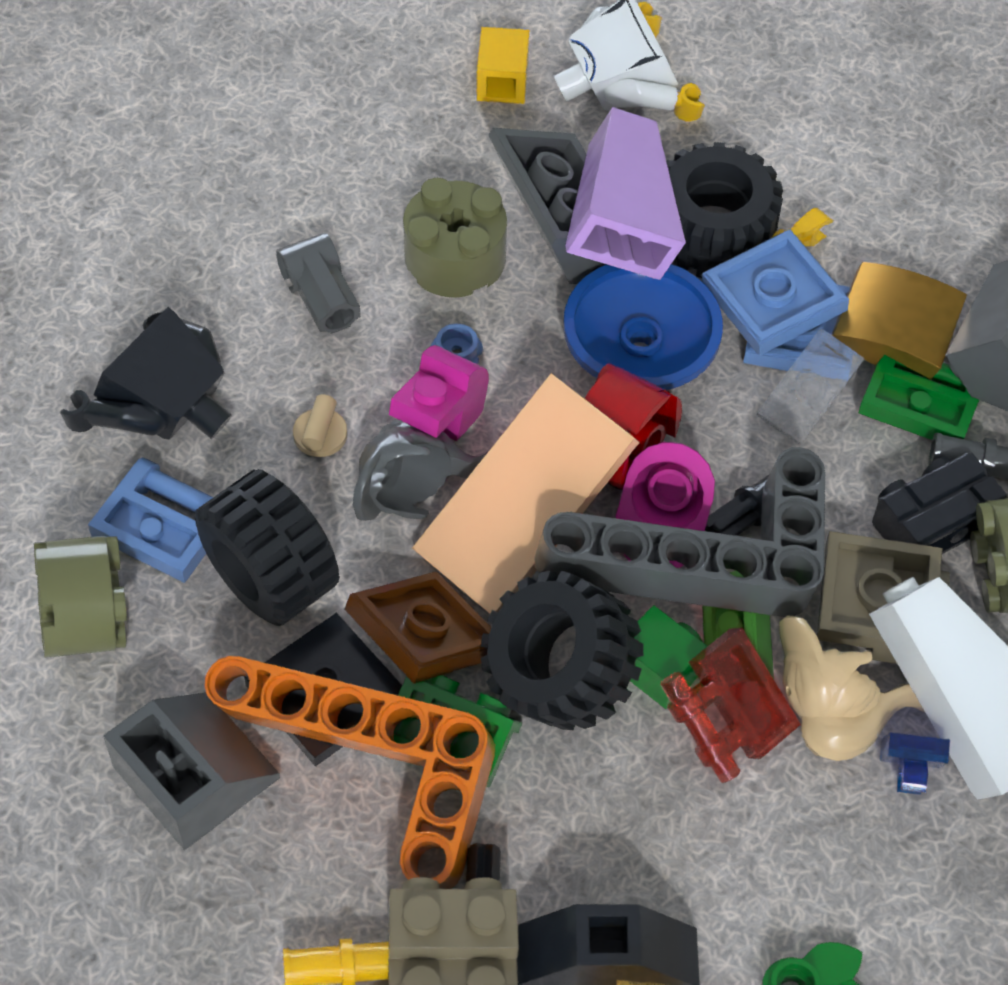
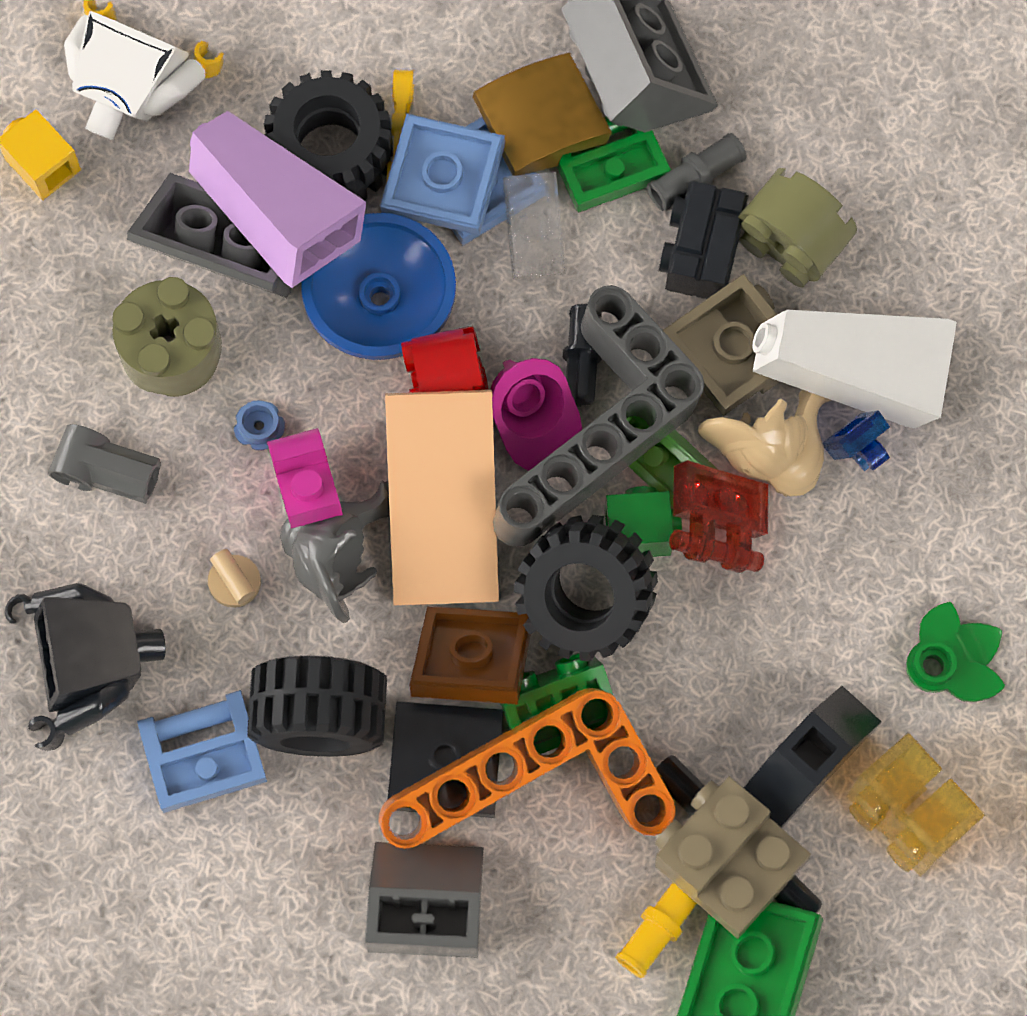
camera: 45 degrees left, 15 degrees up
(80, 595) = (223, 865): olive brick -> none

